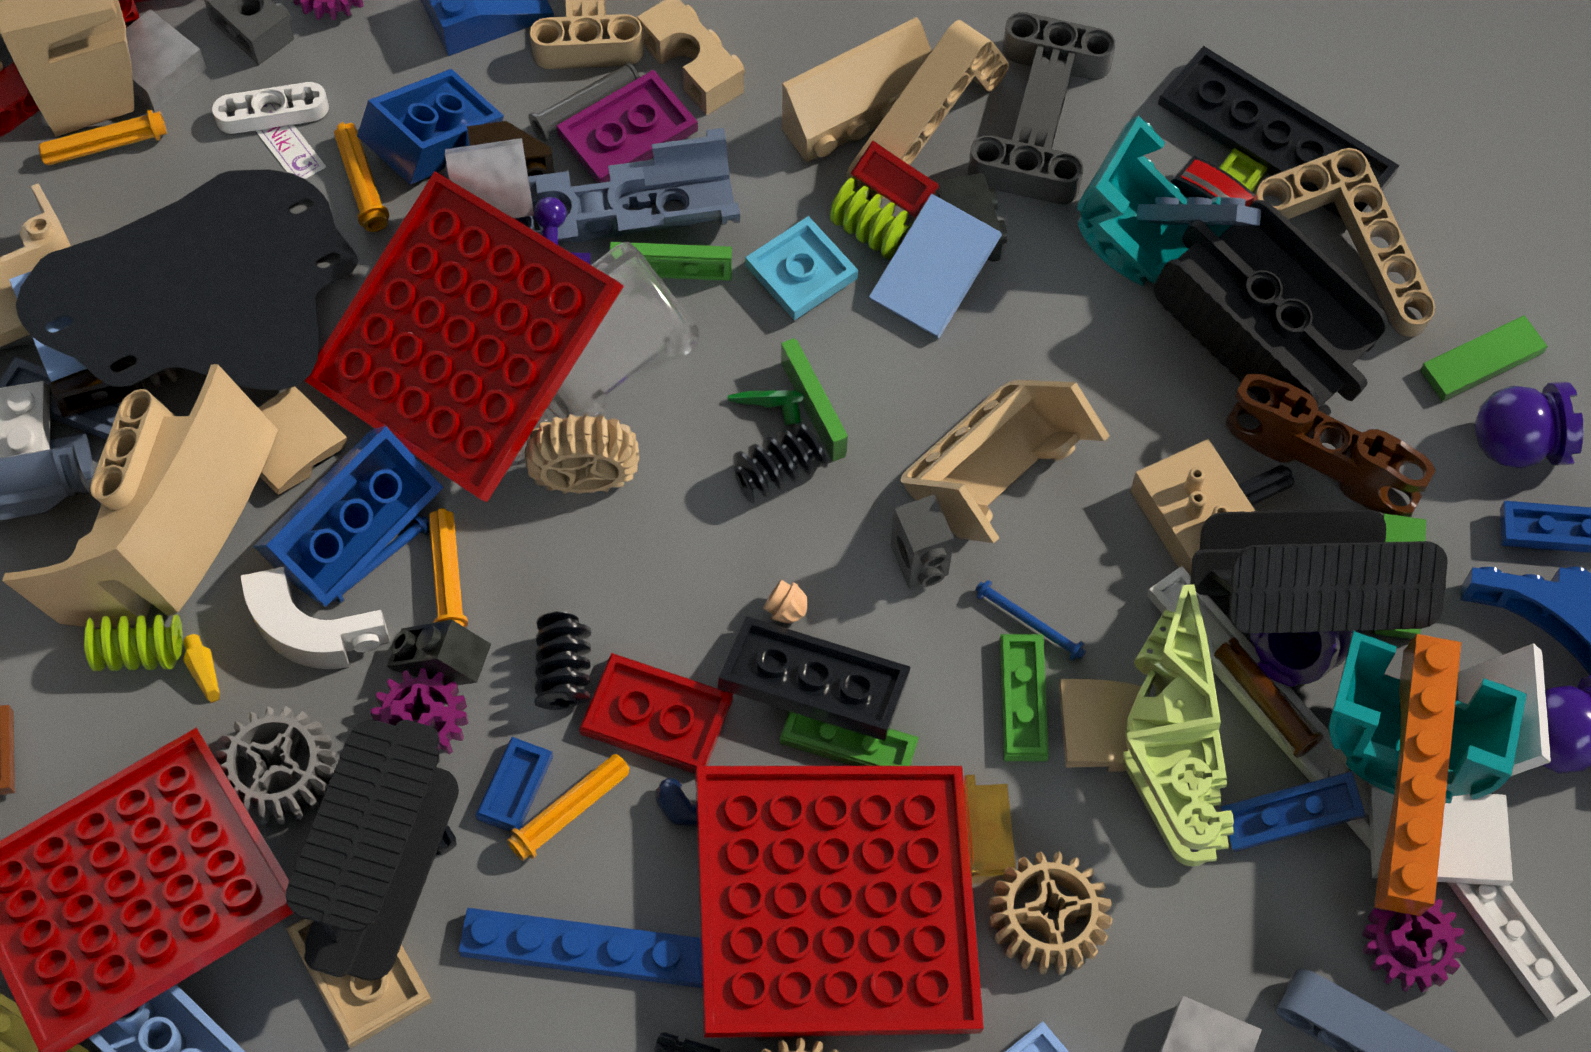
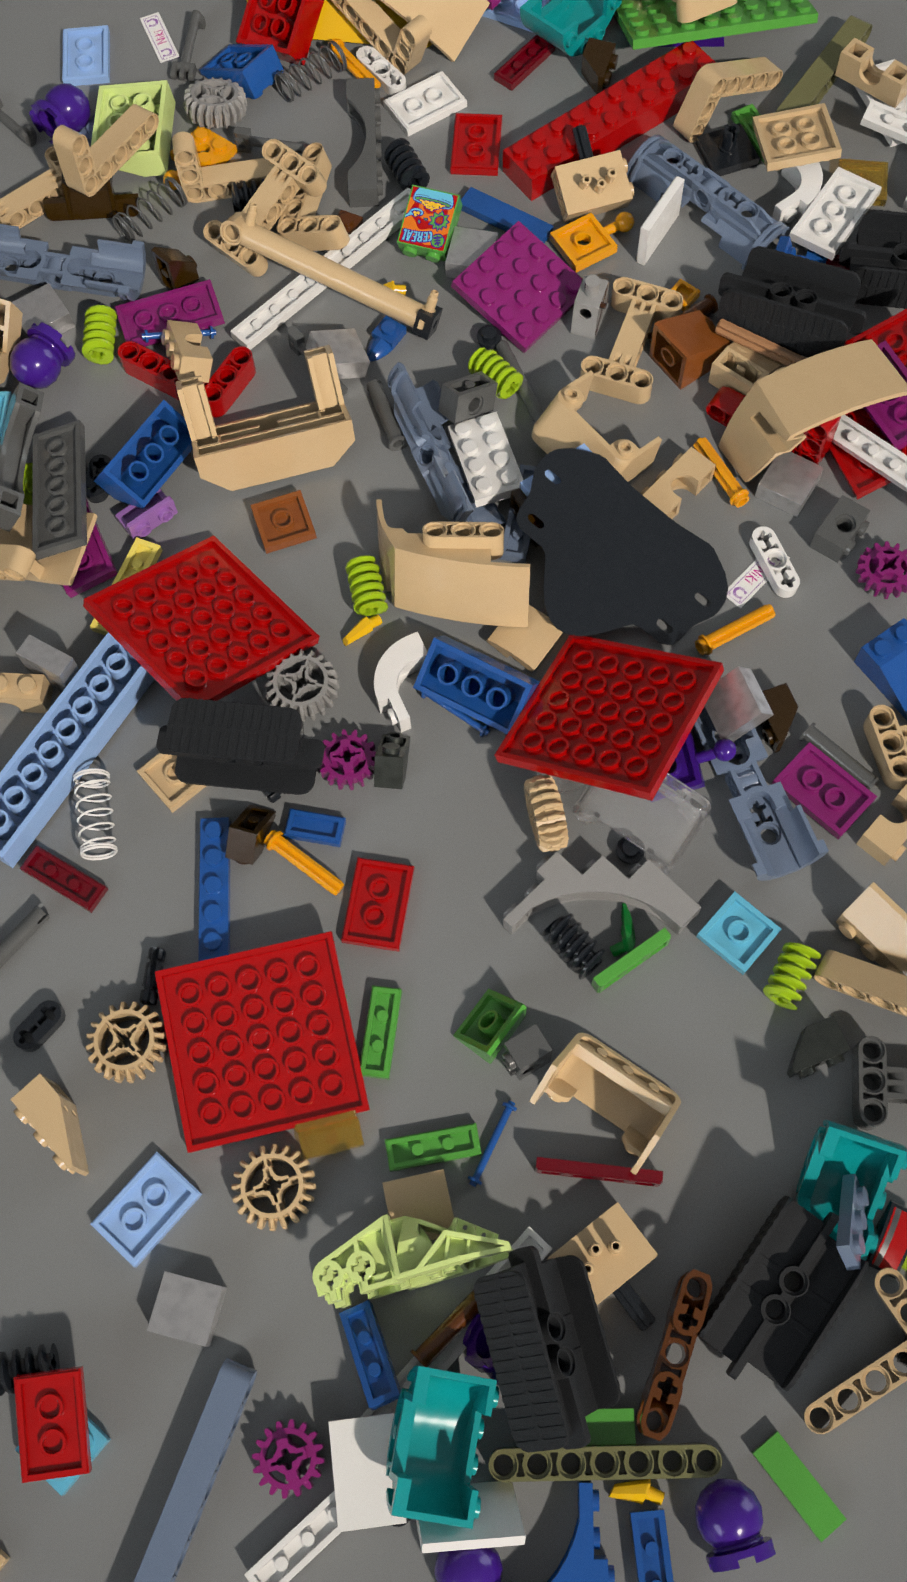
camera: 85 degrees right, 5 degrees up
(94, 174) = (688, 472): none -> tan arch
(422, 120) = (785, 654): blue slope -> none
(446, 567) = (451, 752): light orange axle -> none
(506, 876) = (248, 834): none -> dark brown slope
(561, 661) = (398, 836): black piece -> none
(656, 374) = (628, 852): none -> black plate
(675, 803) = (318, 924): dark blue arm -> none
(687, 260) = (720, 845): bright green tile -> none
(713, 365) = (645, 889): none -> light grey arch
(786, 603) = (470, 971): light nougat plate -> none
(814, 678) = (415, 999): black plate -> none
(870, 587) = (491, 1024): none -> bright green slope
(894, 179) = (824, 983): red tile -> none
(935, 265) = (761, 1027): light blue tile -> none
(1089, 498) = (598, 1172): none -> dark red tile
(1416, 821) = (397, 1445): orange arch -> none
(1455, 504) = (620, 1469): none -> olive beam
(1480, 531) = (637, 1492): none -> yellow bar

